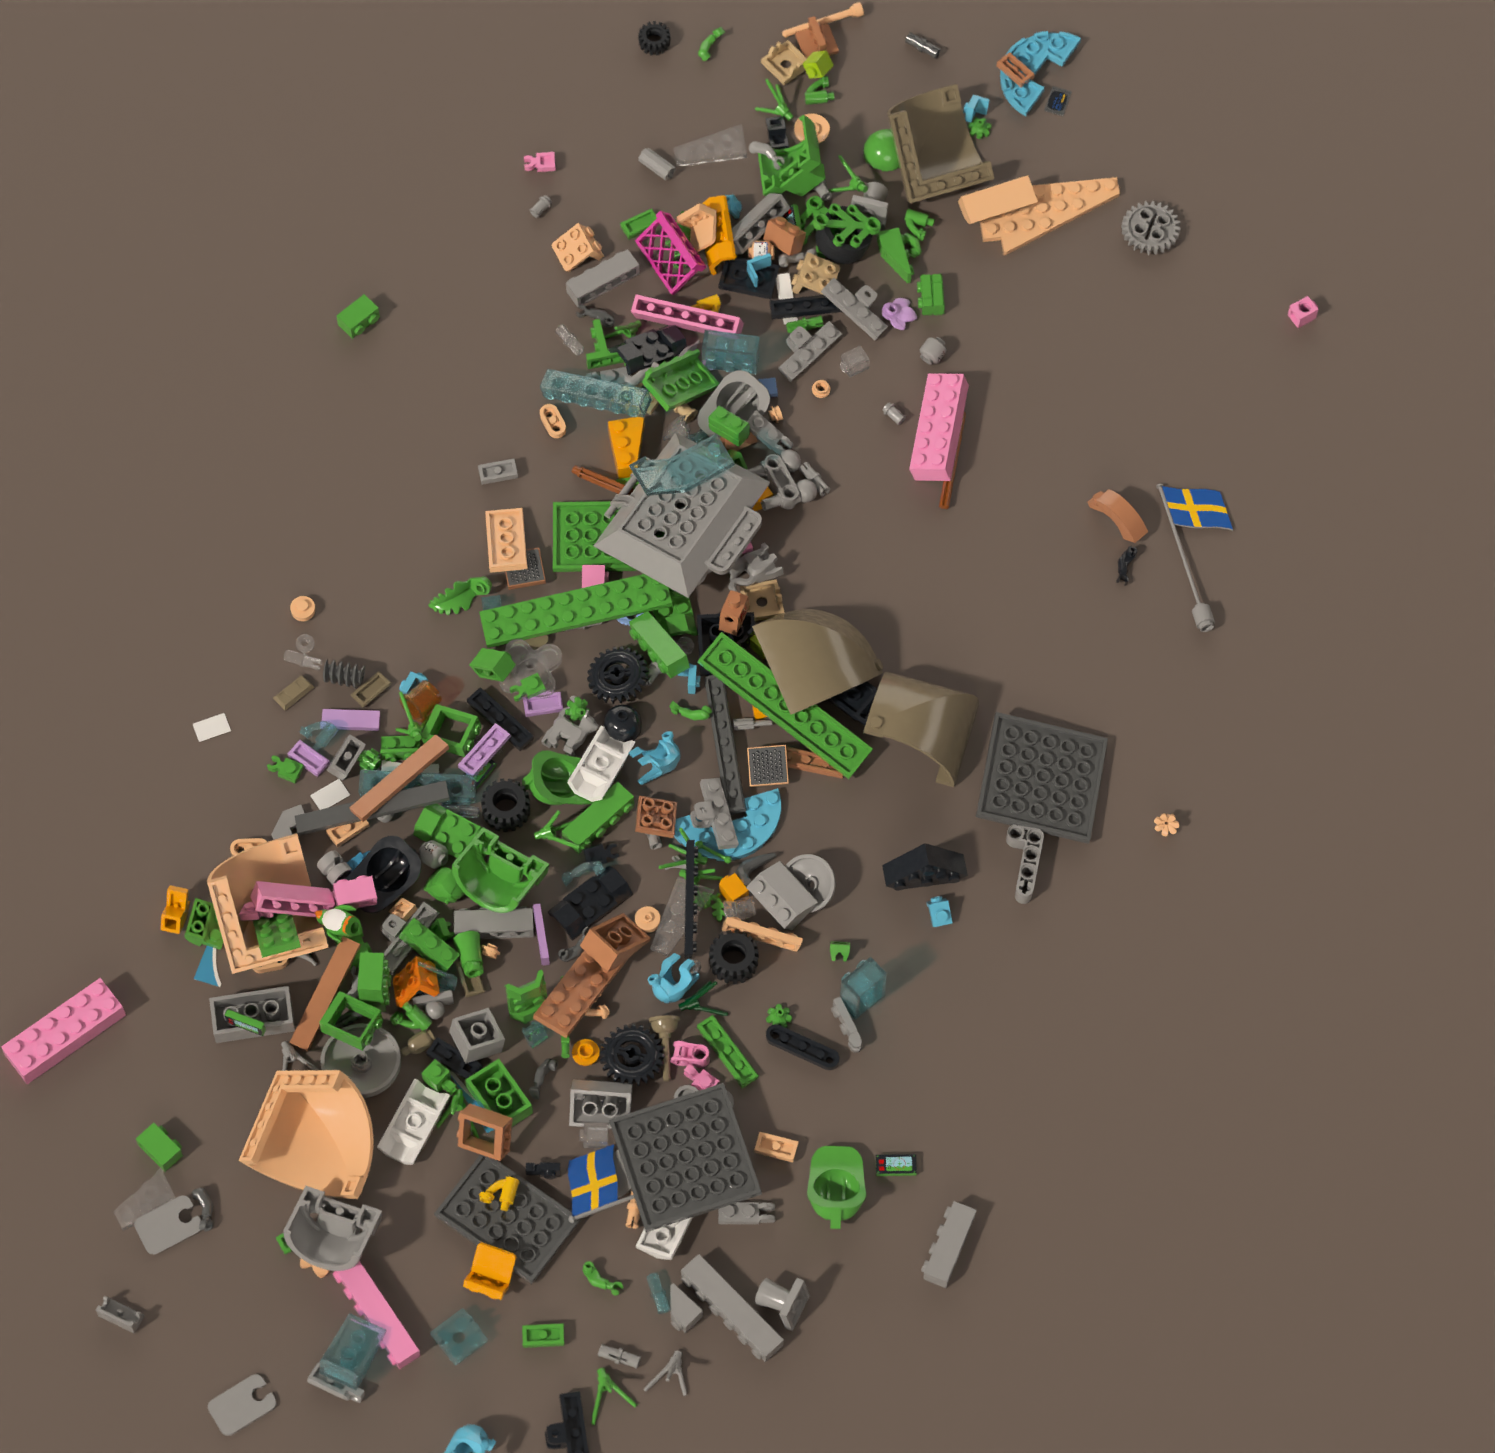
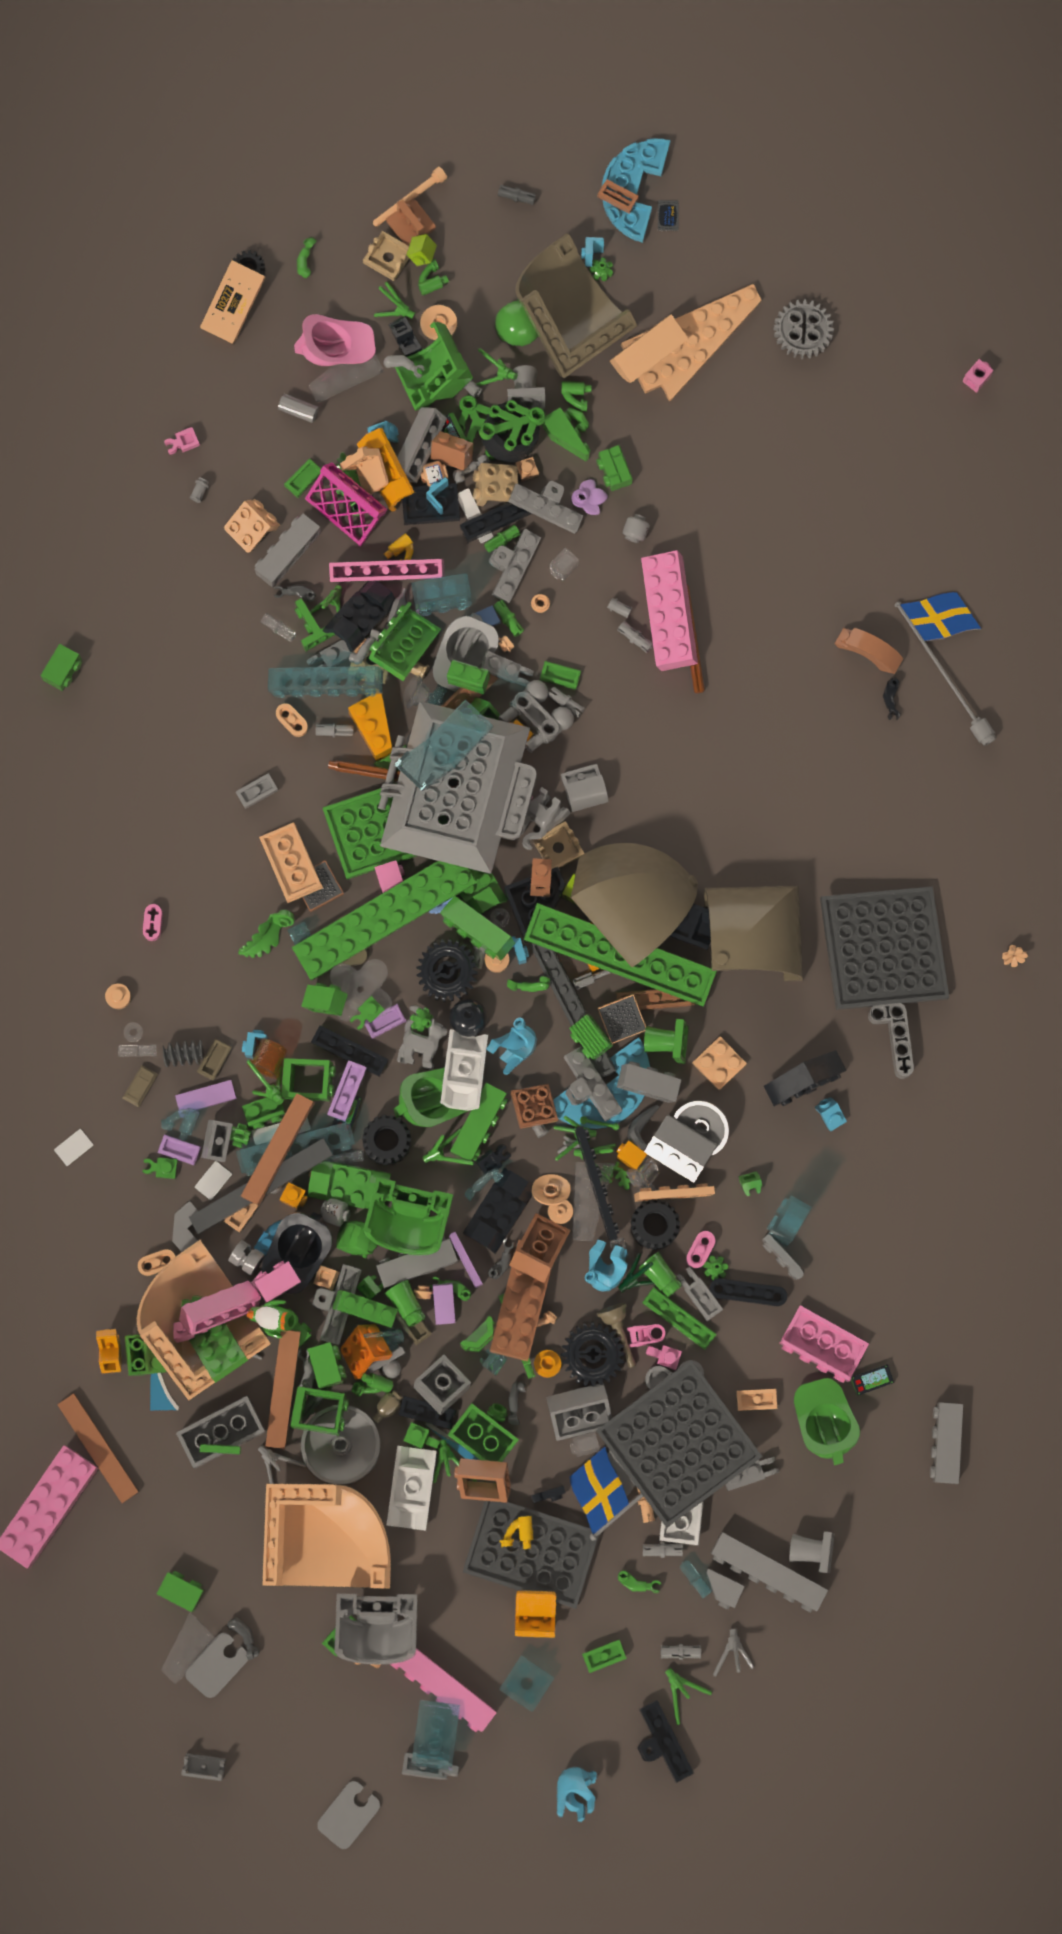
camera: 20 degrees left, 15 degrees up
(131, 996) = (98, 1448): none -> nougat tile
(362, 557) = (148, 921): none -> bright pink beam
(399, 826) = (293, 1196): none -> light orange brick
(506, 966) = (444, 1303): none -> lavender tile
(522, 1080) = (497, 1412): none -> bright green plate
(523, 956) = (458, 1288): none -> bright green arm
(588, 440) = (334, 730): none -> light grey axle
(629, 60) = (232, 302): none -> light nougat tile
(635, 1255) = (662, 1550): none -> light grey pin
(645, 896) = (551, 1189): none -> light nougat dish
(667, 685) = (495, 964): none -> light nougat wheel
(709, 117) = (335, 341): none -> bright pink piece
(723, 1003) = (661, 1275): none -> bright green plant
(731, 770) = (590, 1037): none -> bright green brick
(755, 1036) = (700, 1295): none -> light grey hinge
(769, 995) = (700, 1249): none -> bright pink plate
(772, 828) = (649, 1082): none -> light grey brick
(786, 393) = (508, 618): none -> bright green pin
(804, 556) = (584, 787): none -> light grey brick
(810, 799) = (668, 1040): none -> bright green plant
(817, 455) = (560, 675): none -> bright green tile
(847, 835) = (719, 1063): none -> light nougat plate
(849, 273) = (527, 469): none -> light nougat plate
(859, 1116) = (823, 1344): none -> bright pink bracket
(899, 442) = (635, 636): none -> light grey pin

